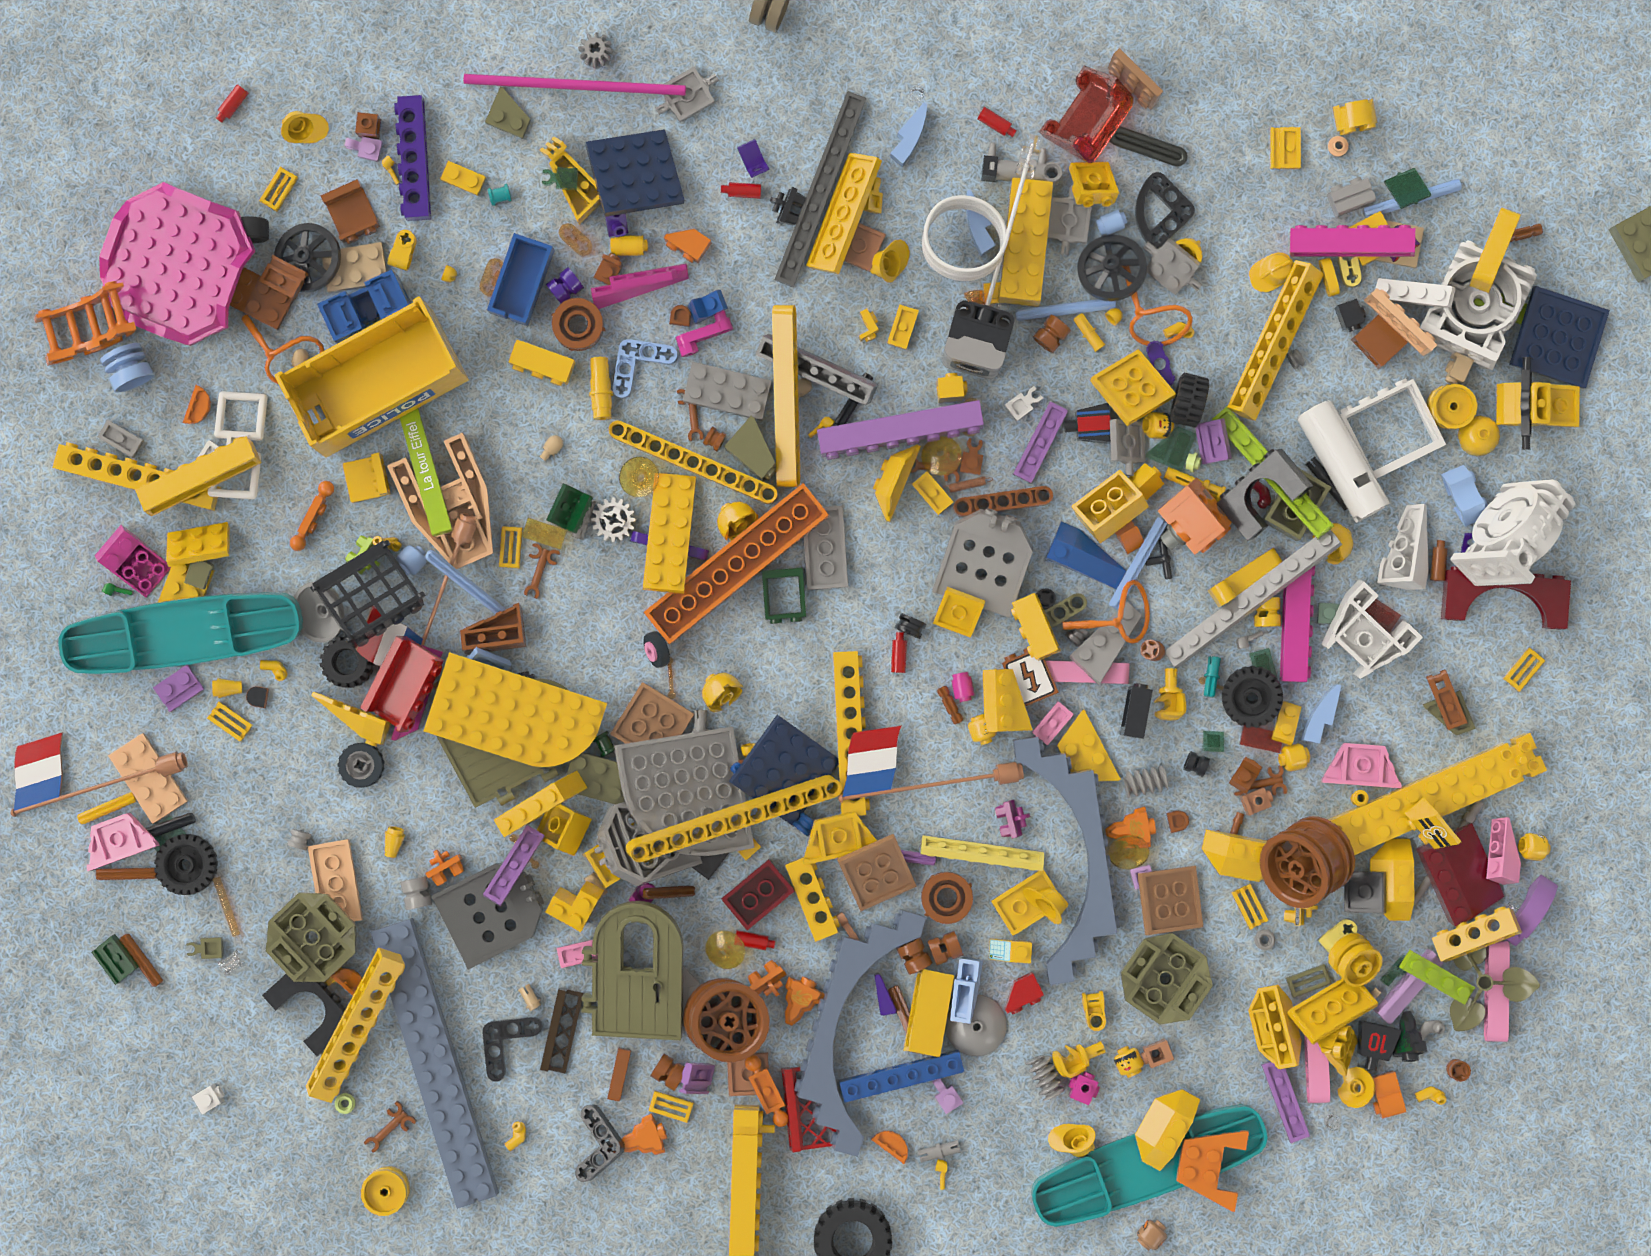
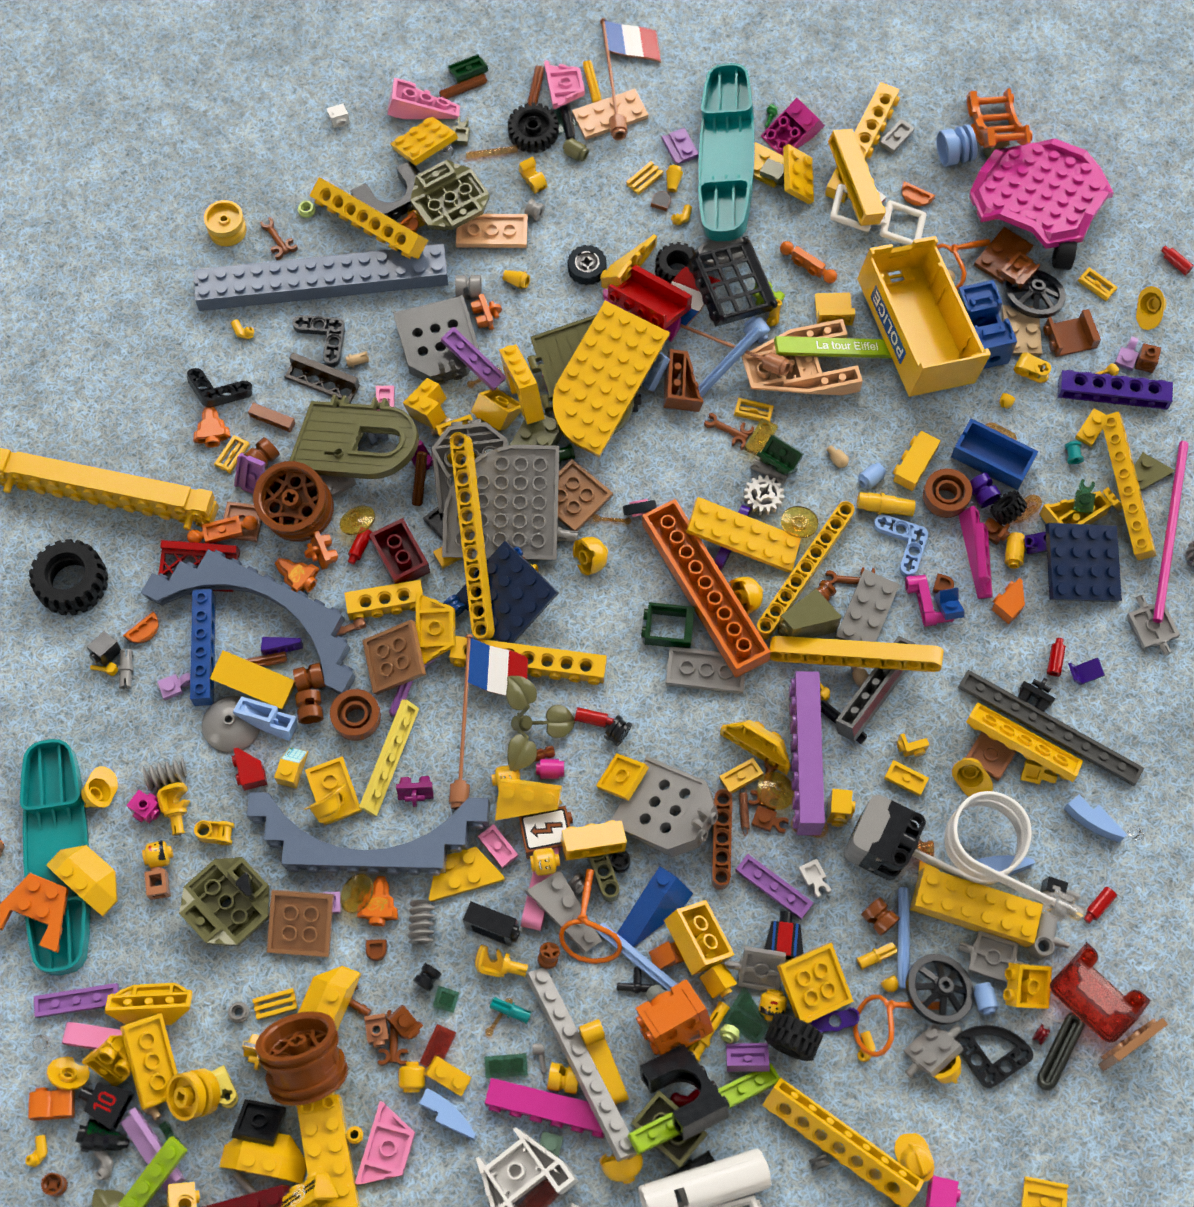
camera: 100 degrees right, 20 degrees down
(177, 1009) = (412, 103): none -> bright pink wedge
(208, 808) = (575, 149): none -> olive brick
(232, 987) = (423, 140): none -> yellow plate
(254, 850) = (535, 179): none -> yellow leg
(533, 133) = (1128, 486): none -> yellow brick
(568, 408) = (871, 475): none -> light blue brick
(588, 250) = (1008, 507): none -> black tyre
(908, 730) = (559, 722): none -> olive plant
(924, 1179) = (103, 649): none -> brick
(1067, 671) = (544, 861): none -> yellow head
(1135, 167) = (1040, 1034): none -> dark red bush
(1153, 959) = (245, 885): none -> black slope
(1252, 712) = (487, 1058): black wheel -> none
(1297, 993) = (188, 1066): olive tile -> none

